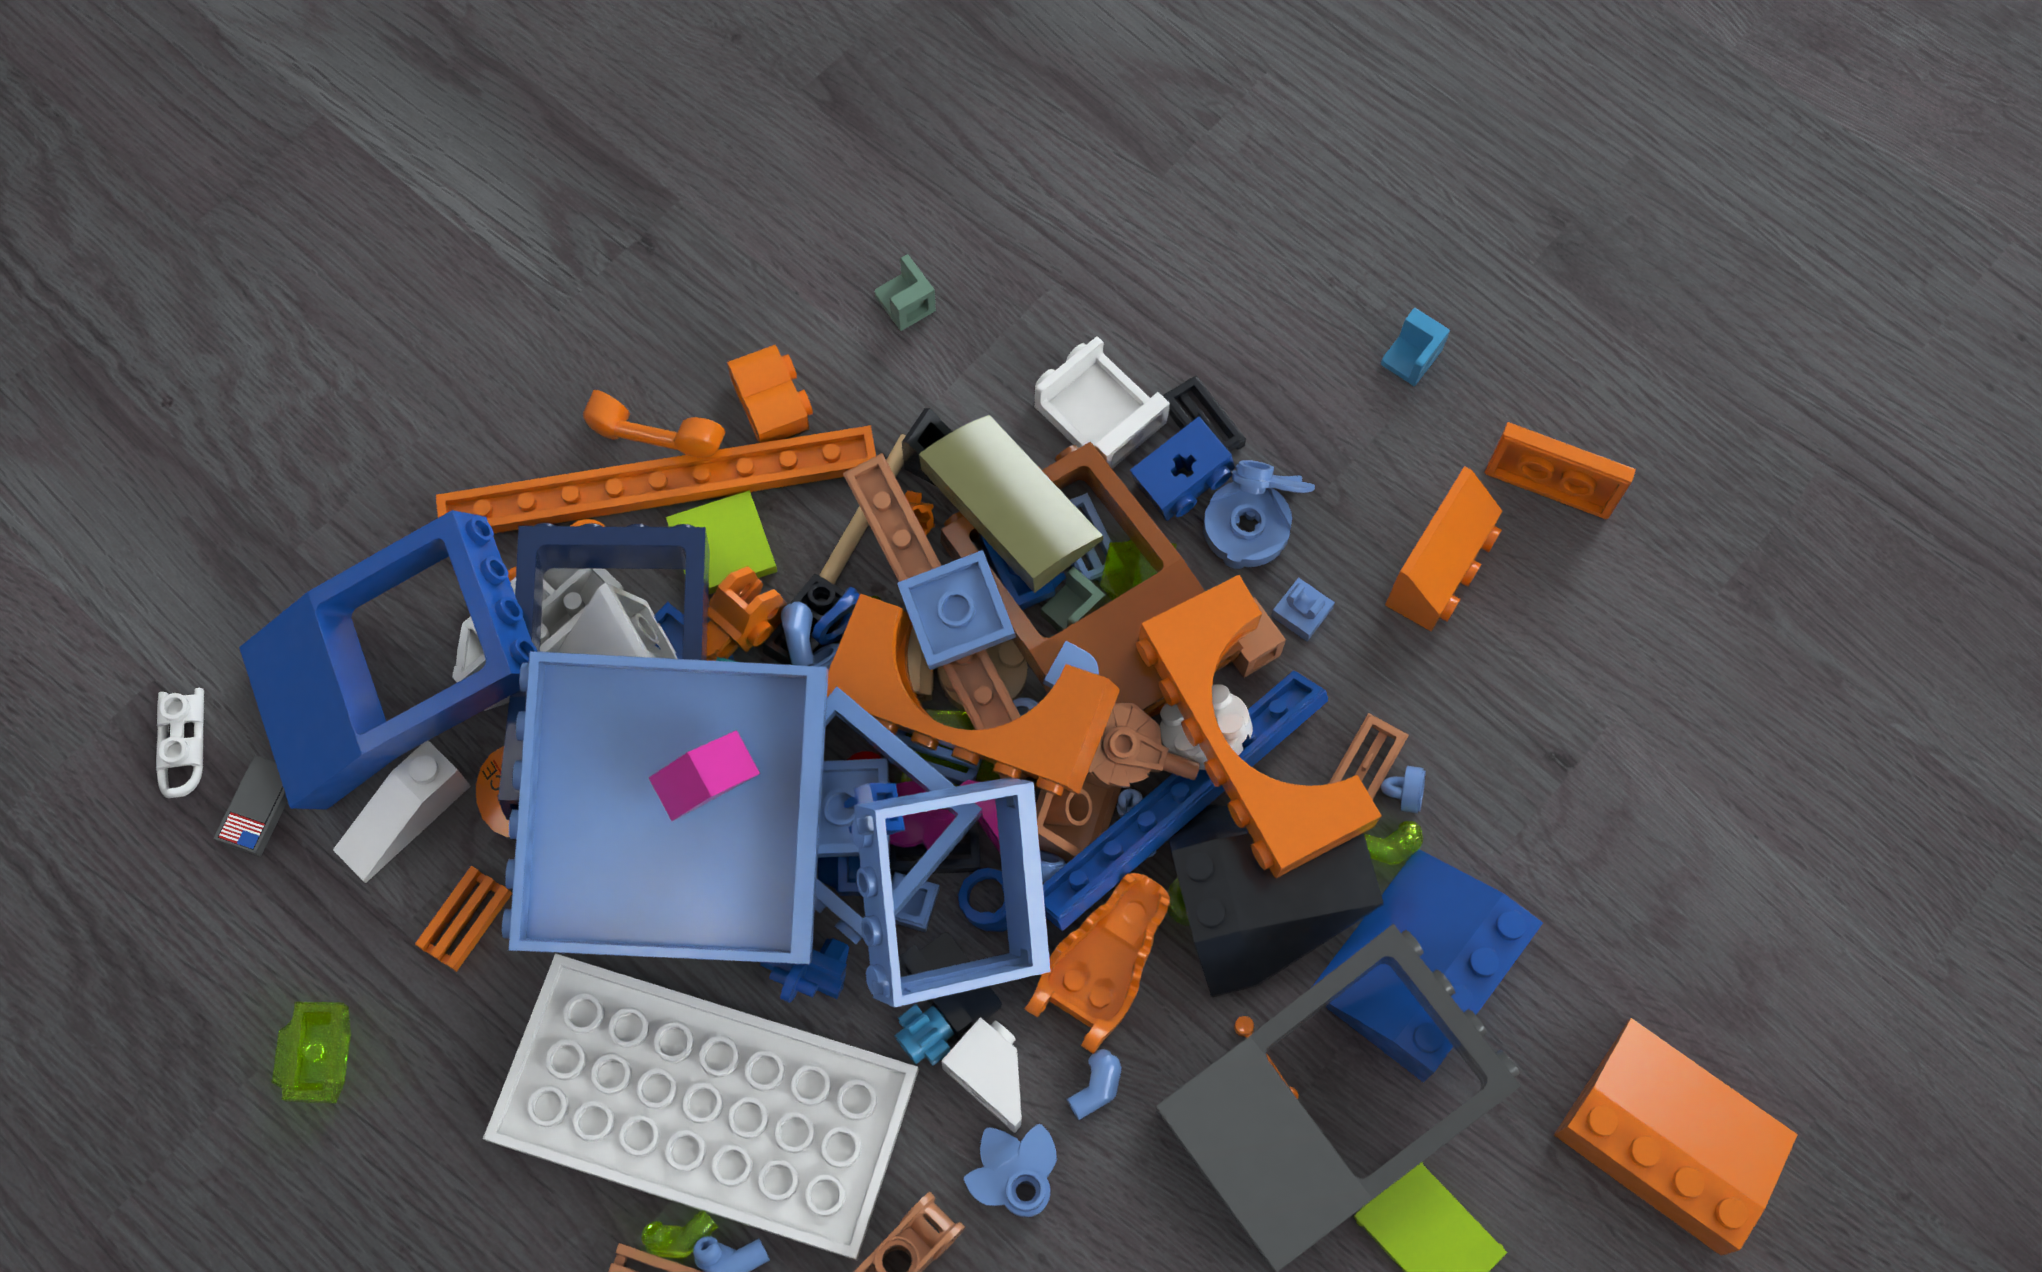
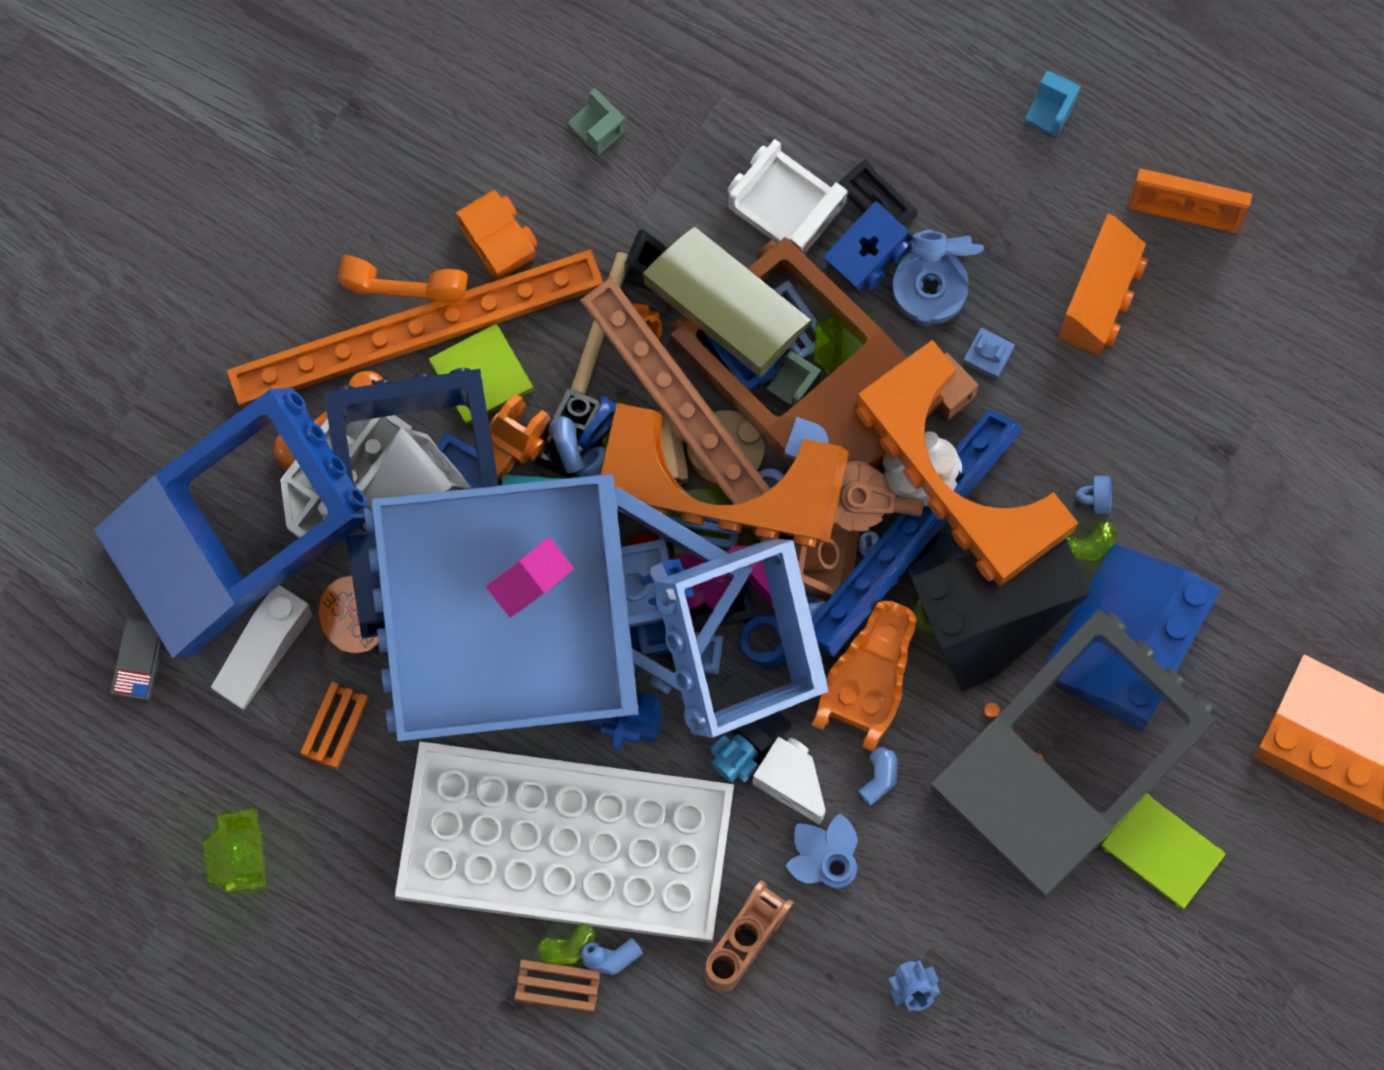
camera: 10 degrees left, 5 degrees up
(176, 750) = (58, 625): white piece -> none
(956, 610) = (700, 404): medium blue plate -> none
(1384, 730) = (1072, 448): nougat tile -> none

